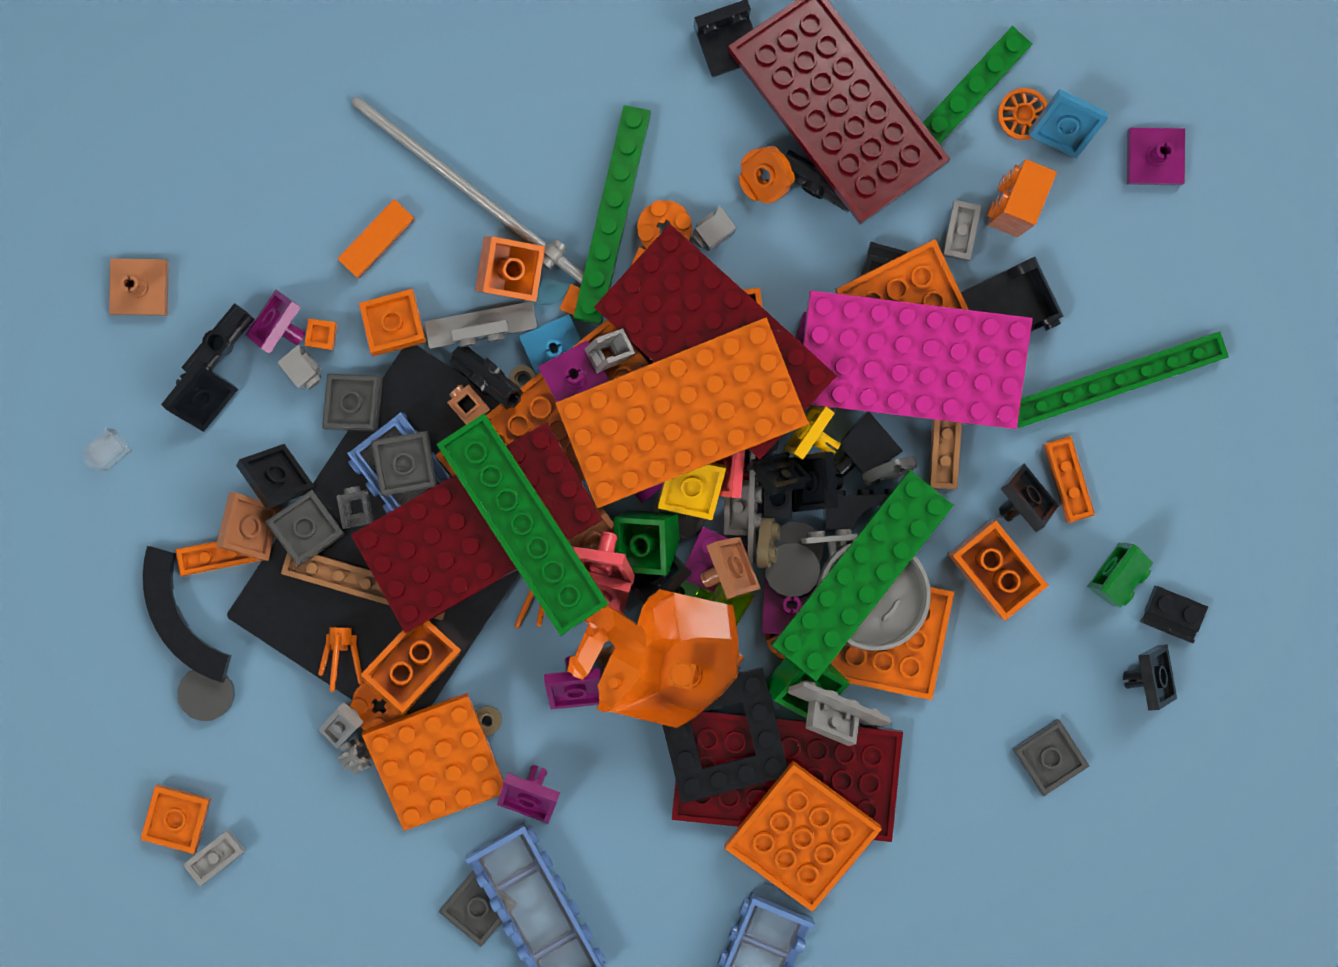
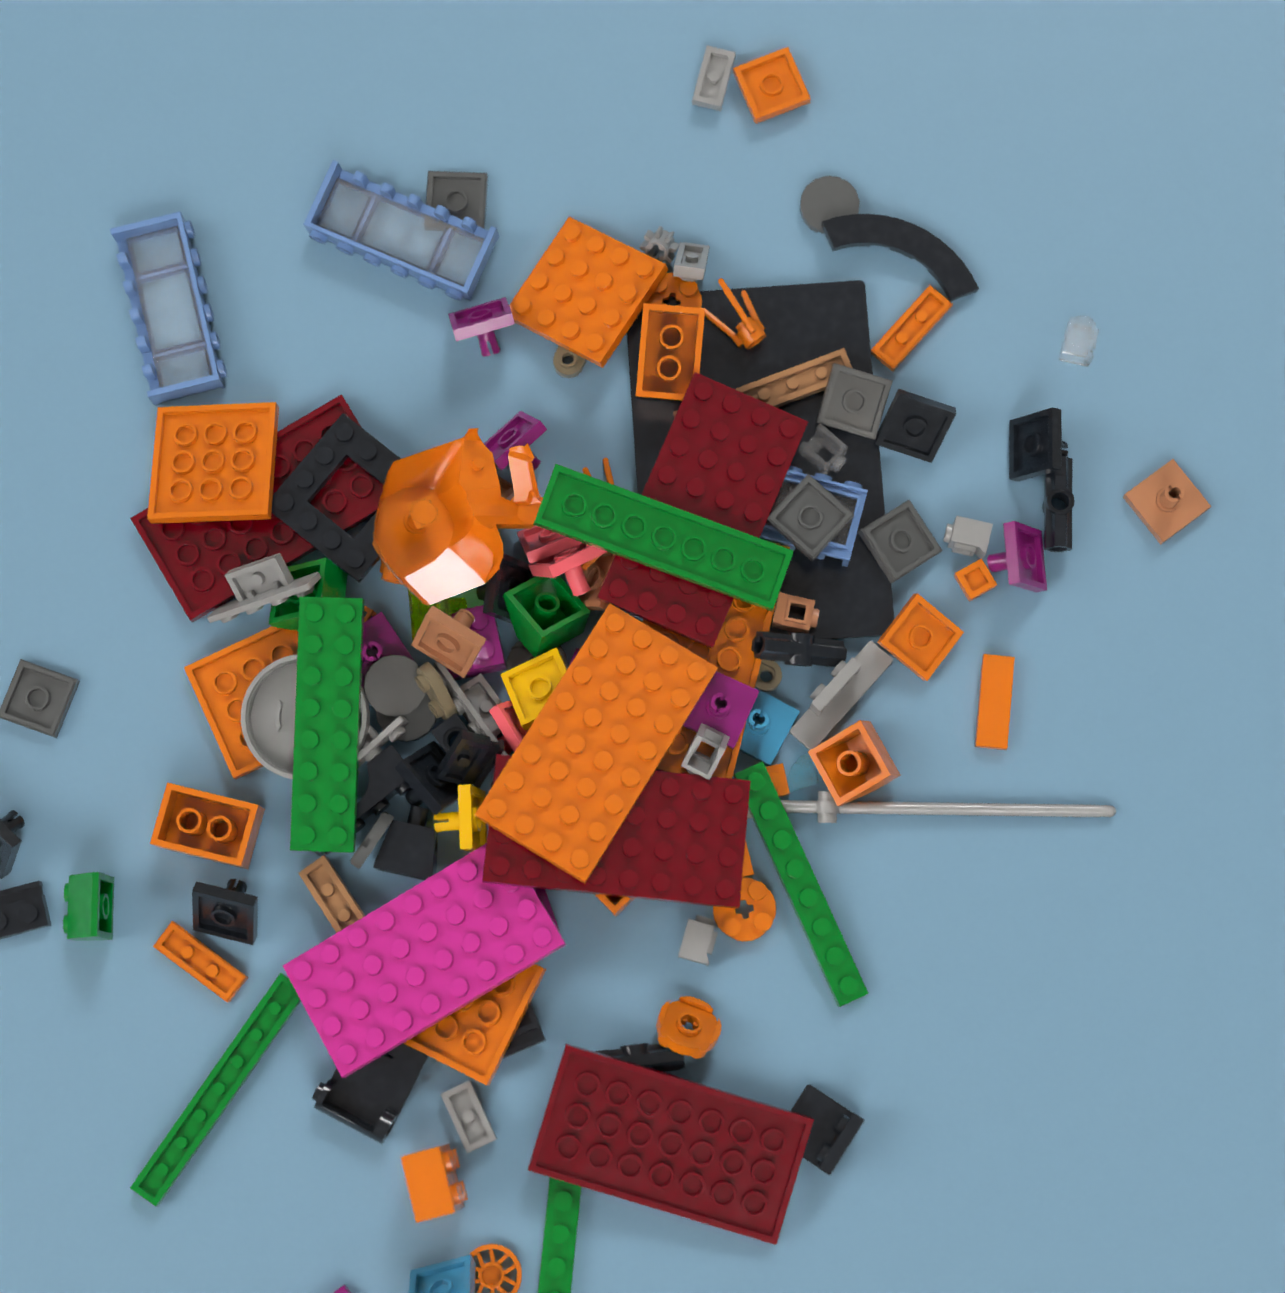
camera: 150 degrees right, 10 degrees down
(245, 528) = (905, 362): nougat tile -> none

